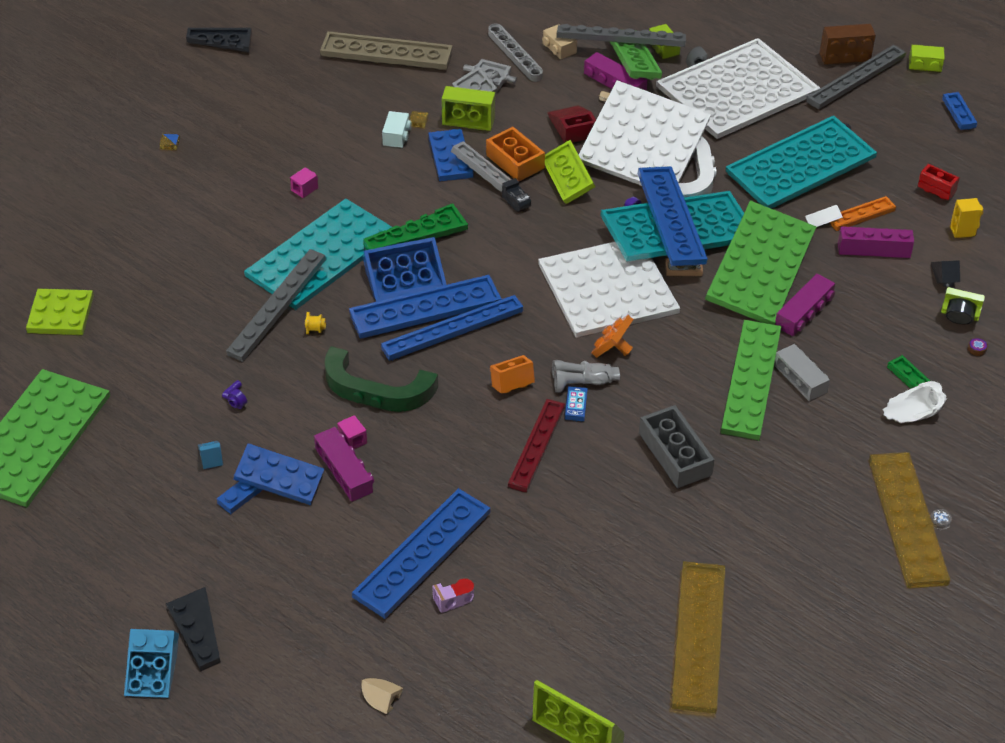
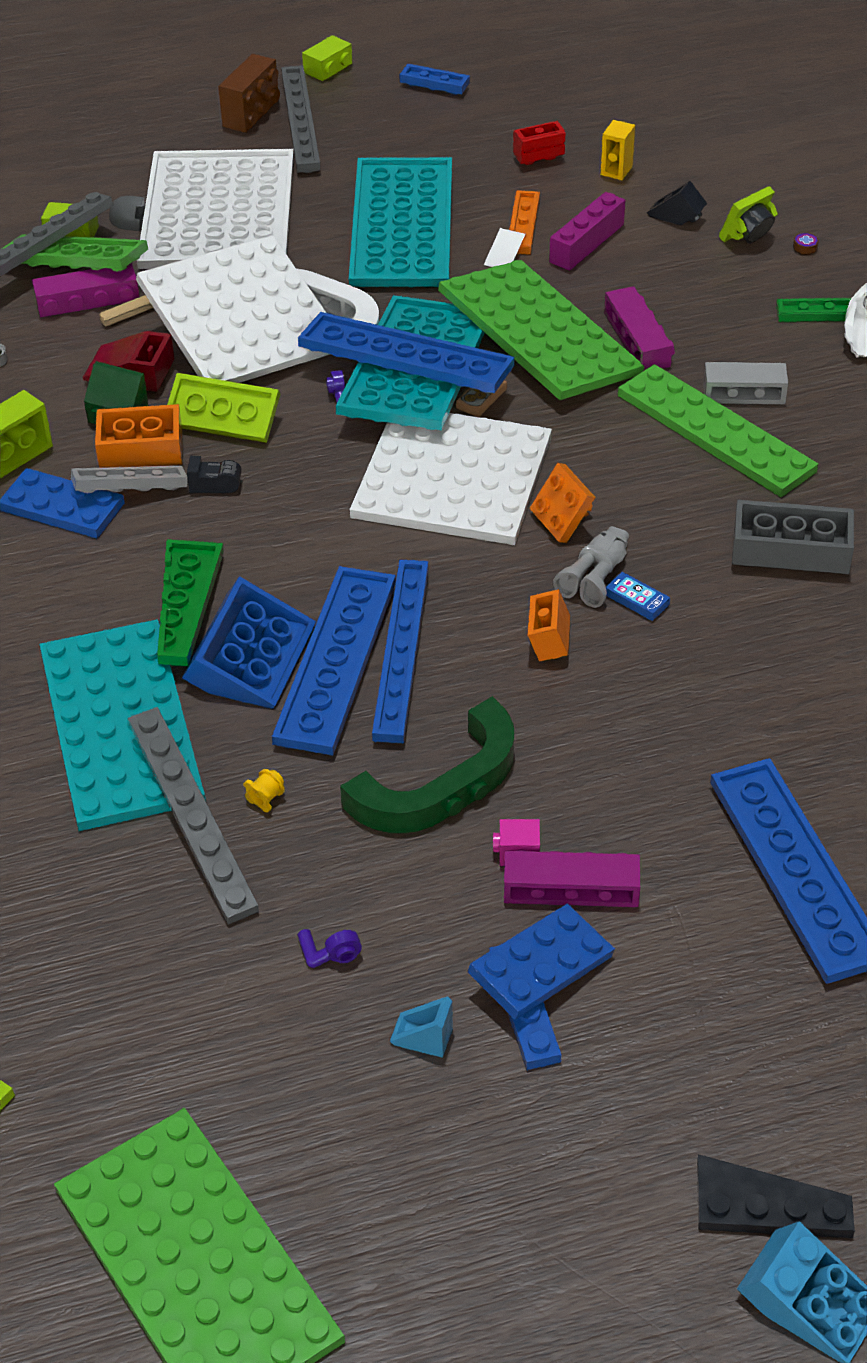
camera: 55 degrees left, 0 degrees up
(535, 127) = (113, 388): none -> dark green slope
(536, 445) = (681, 667): dark red tile -> none

